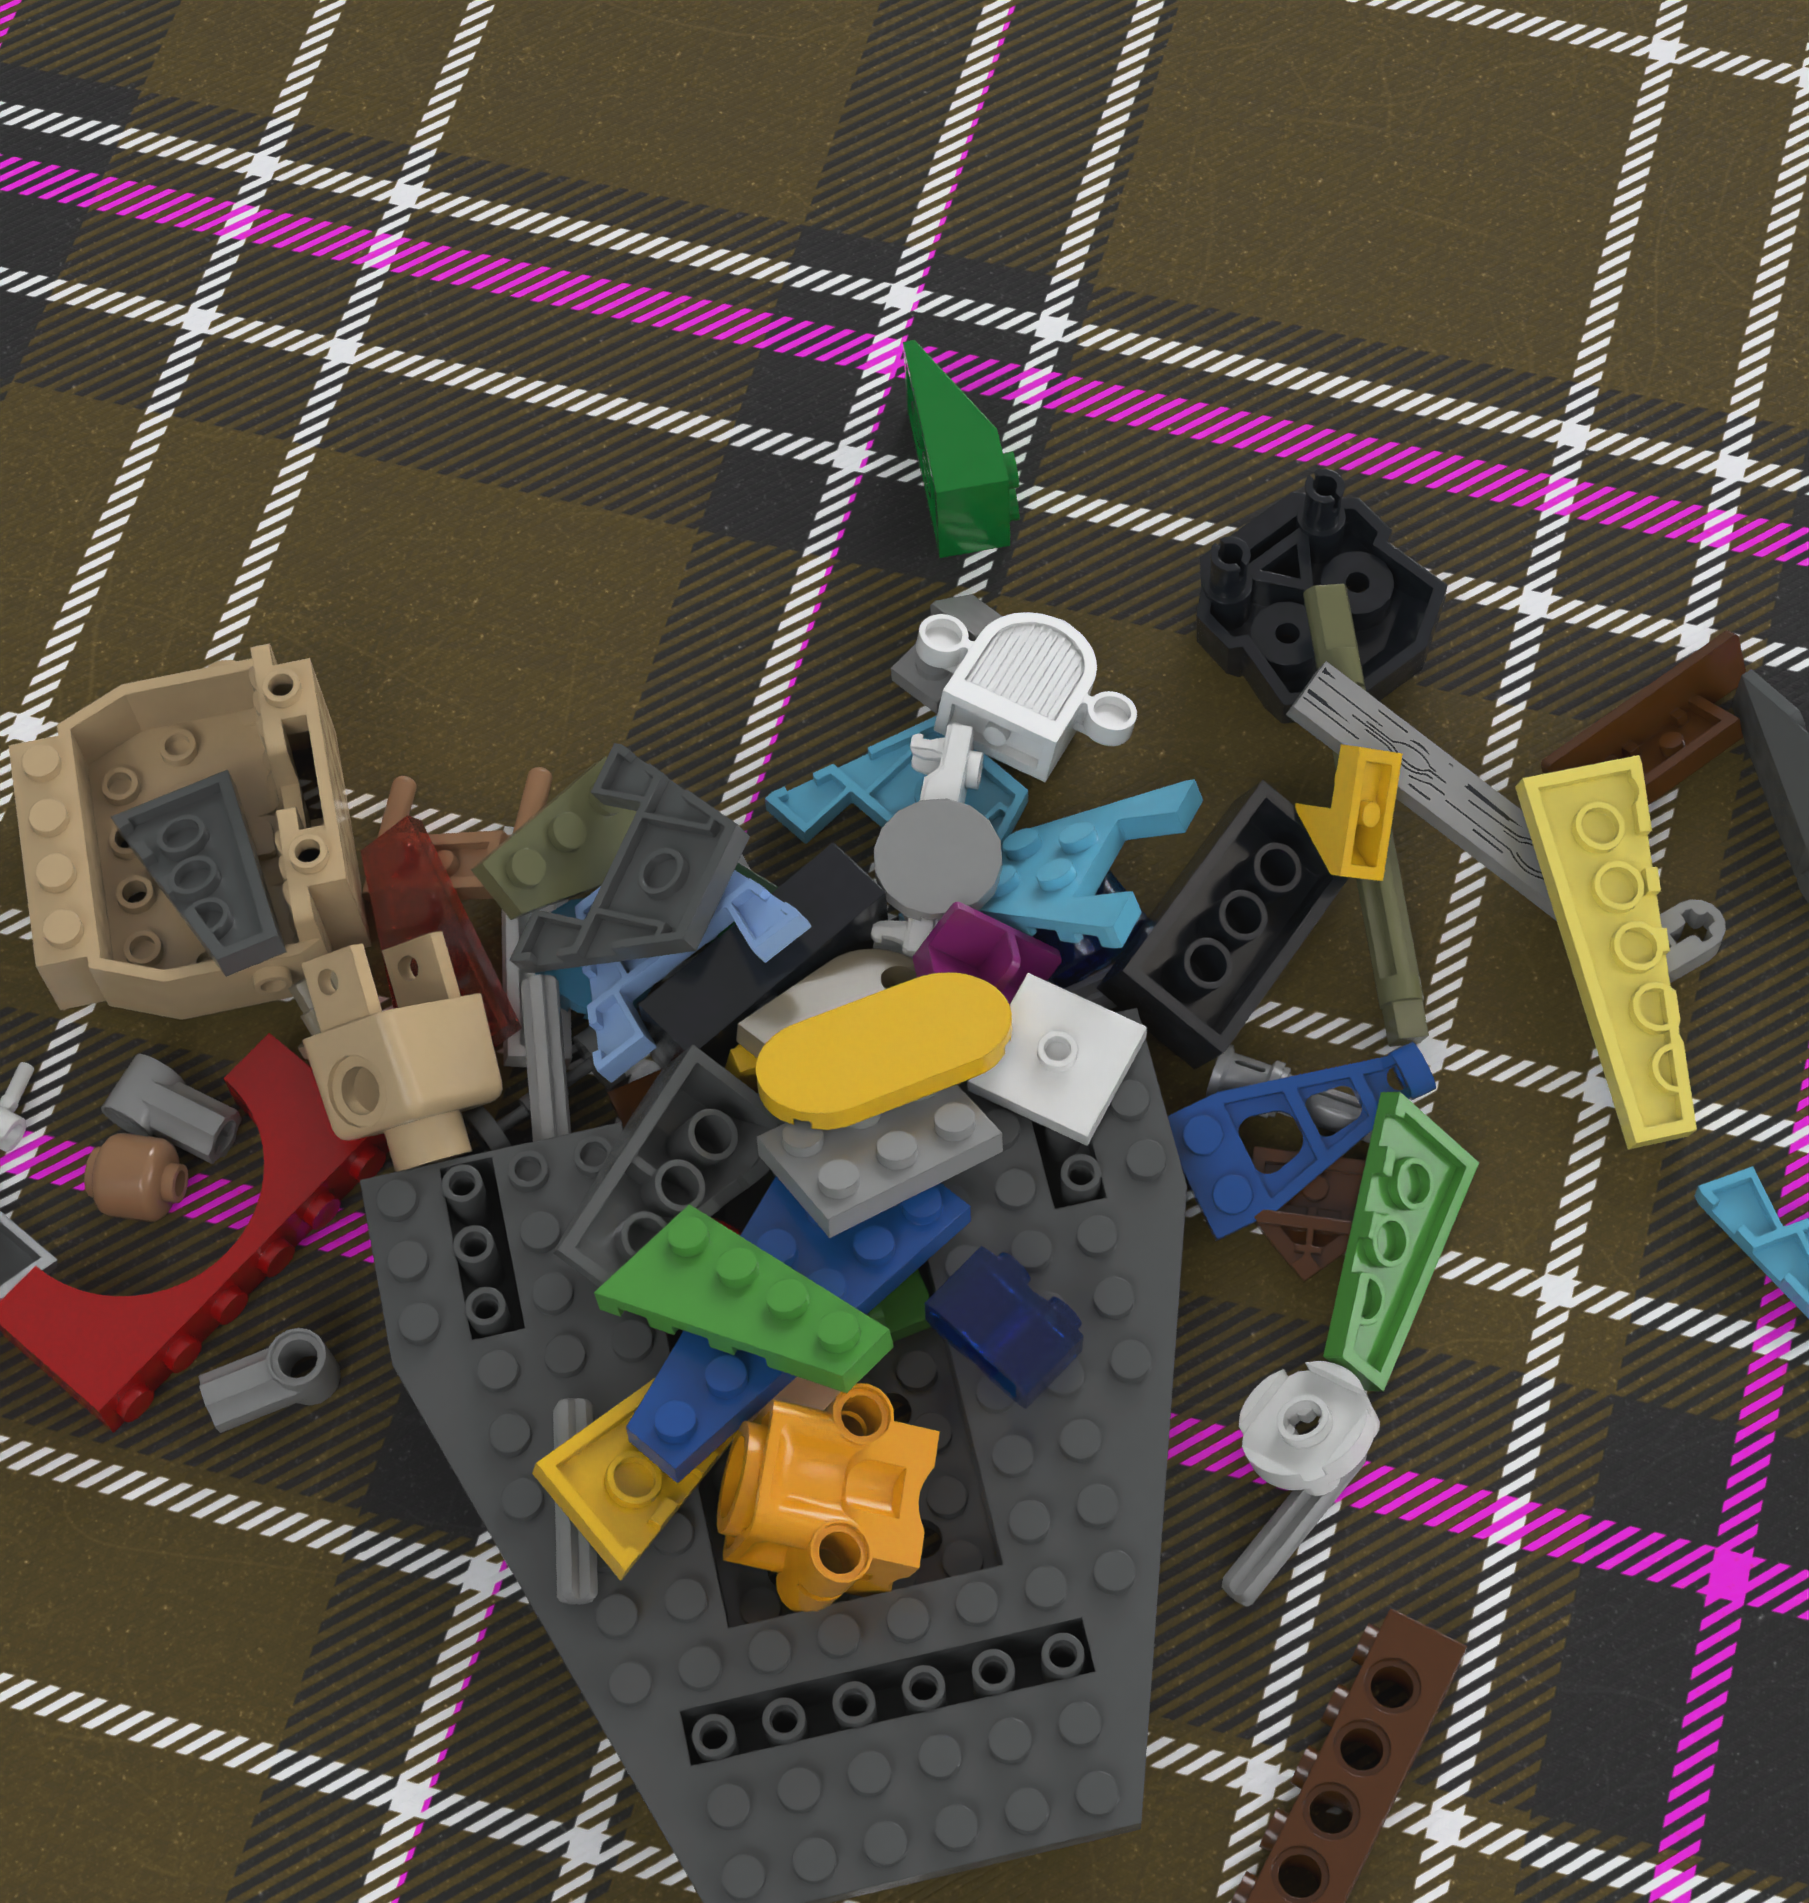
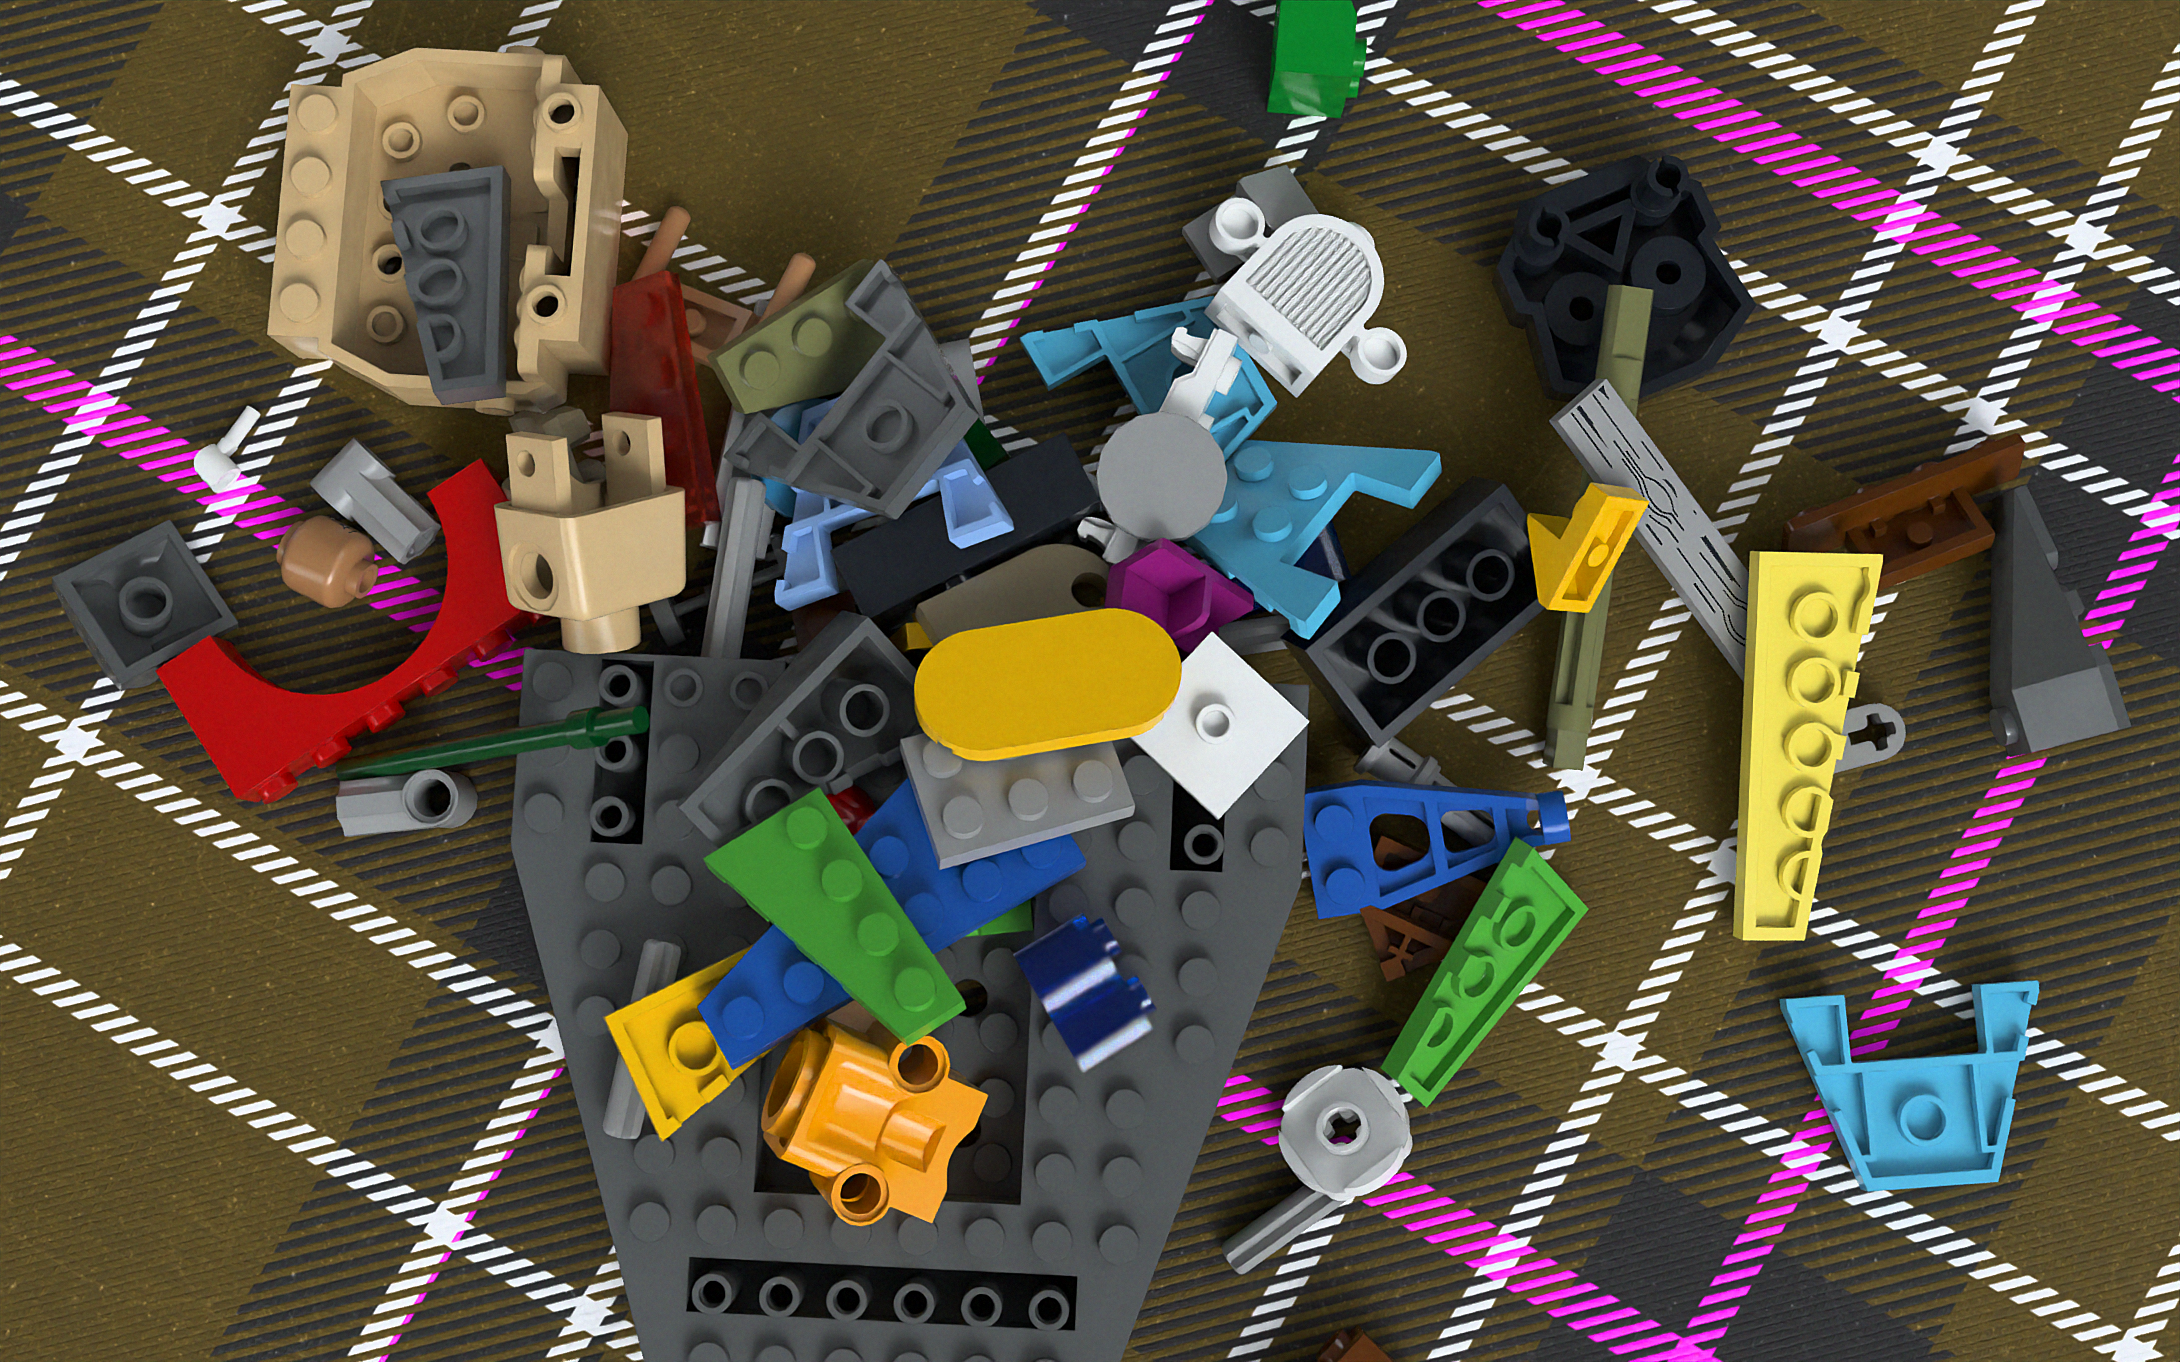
camera: 15 degrees right, 20 degrees up
(441, 1215) = (580, 729): none -> dark green bar

